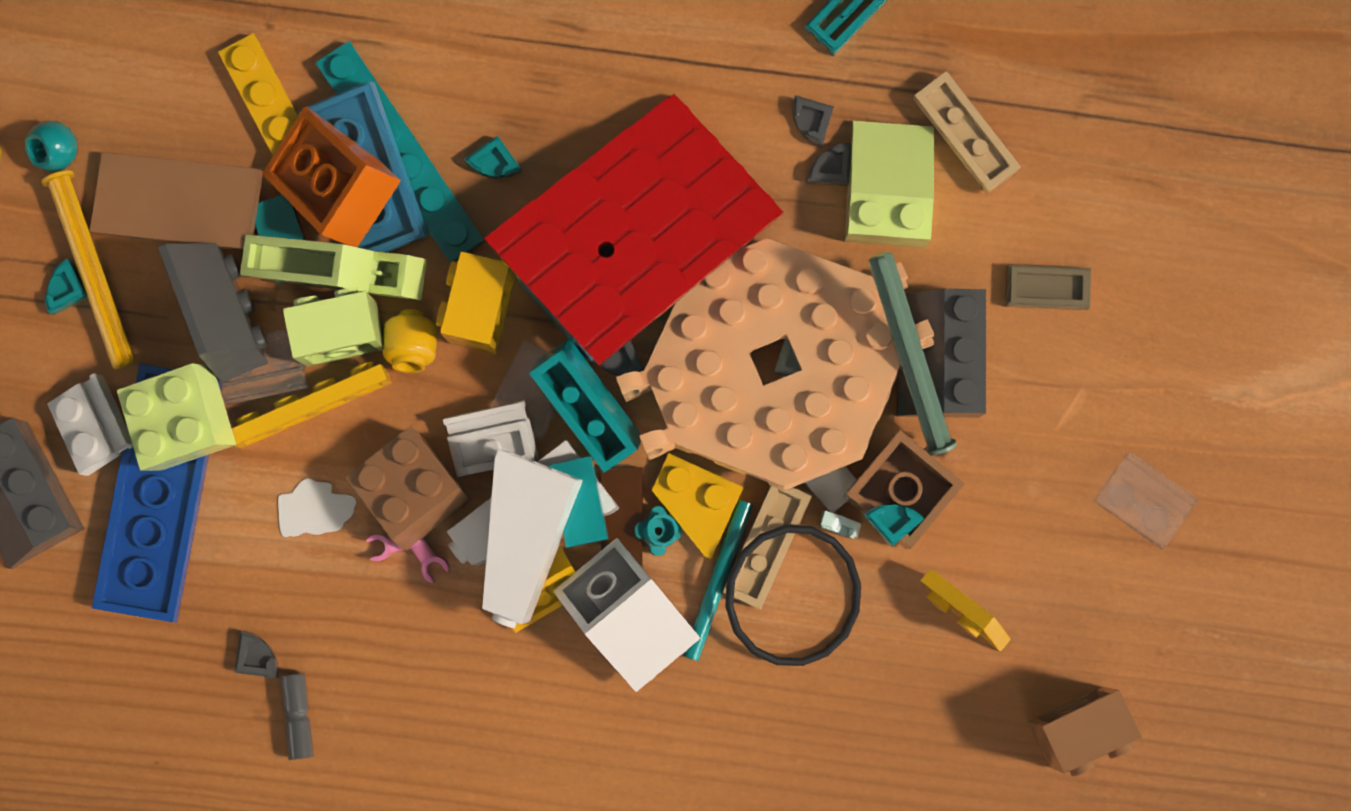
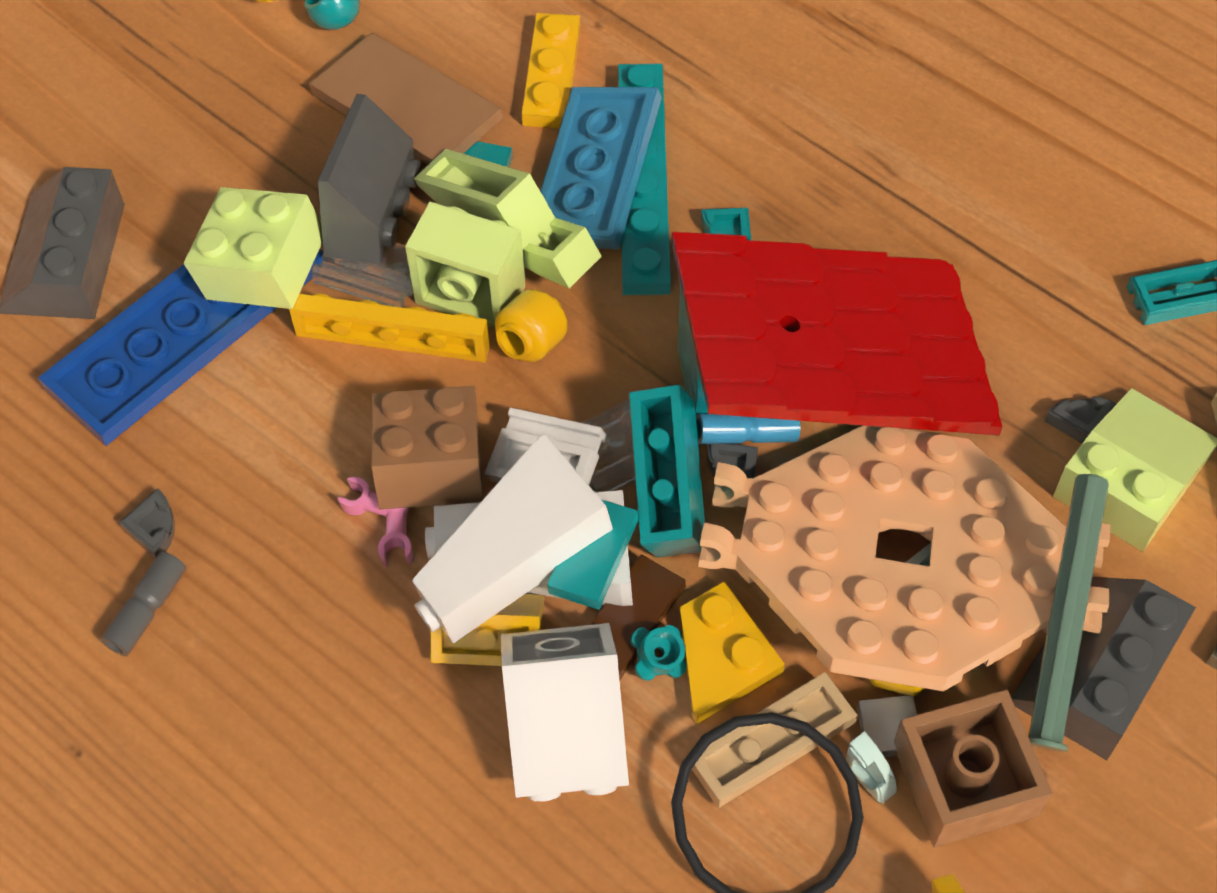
camera: 35 degrees right, 25 degrees down
(64, 288) = (250, 119): teal tile -> none
(89, 268) = (282, 117): yellow axle -> none
(90, 424) = (170, 227): white plate -> none
(313, 509) = (320, 428): white sticker -> none
(330, 179) = (563, 145): orange slope -> none
(476, 302) = (623, 320): yellow brick -> none
(719, 577) = (670, 761): teal bar -> none
(811, 119) = (1087, 364): dark grey tile -> none
(893, 521) = (940, 779): teal tile -> none

